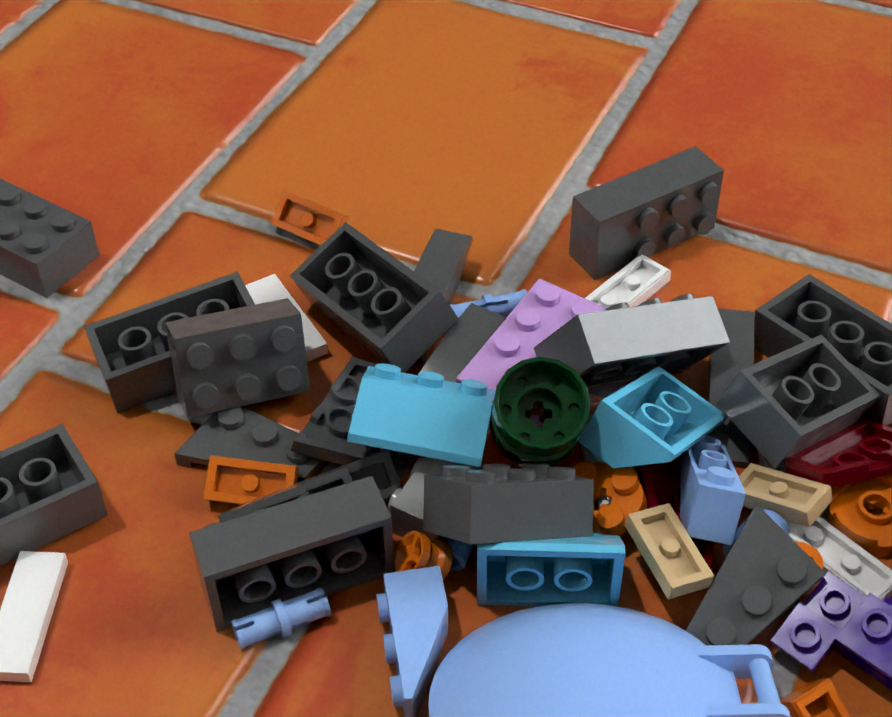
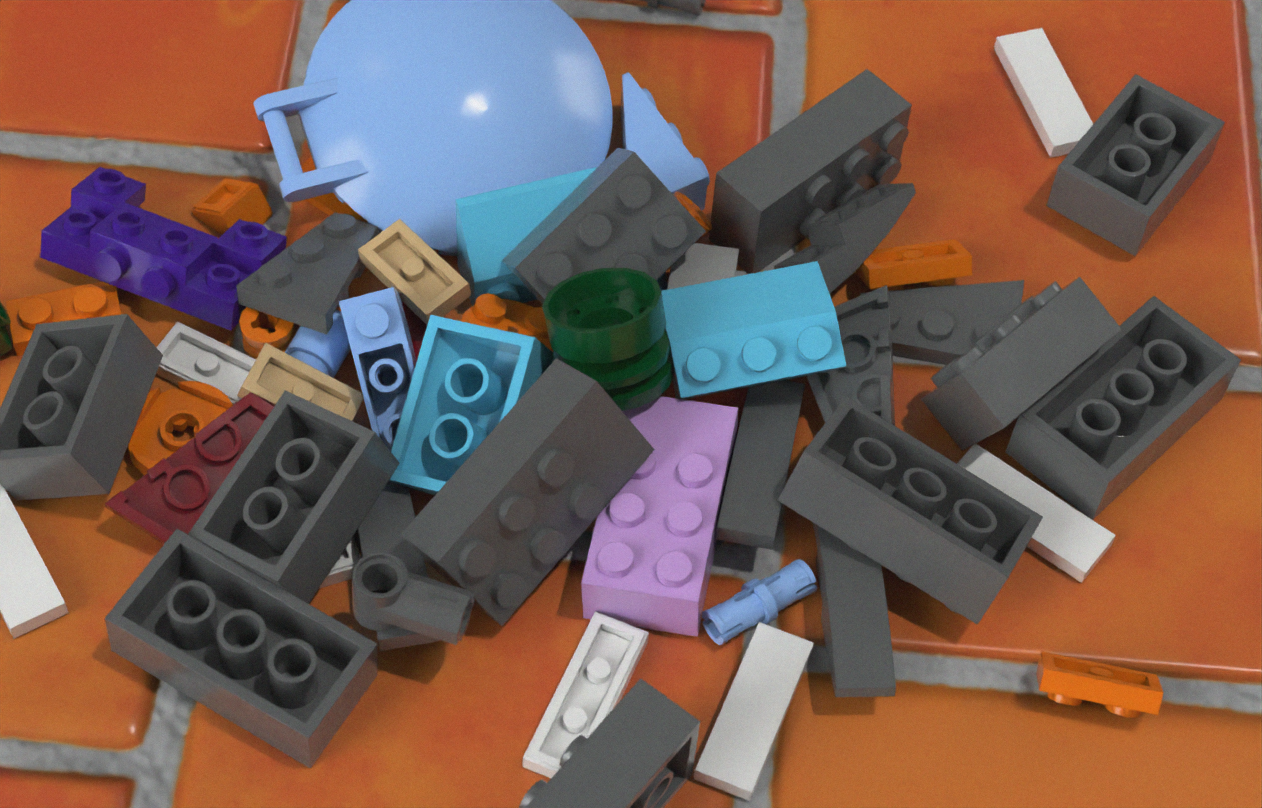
camera: 155 degrees right, 10 degrees up
(519, 263) = (753, 711): none -> white tile
(744, 309) = (410, 602): none -> dark grey piece

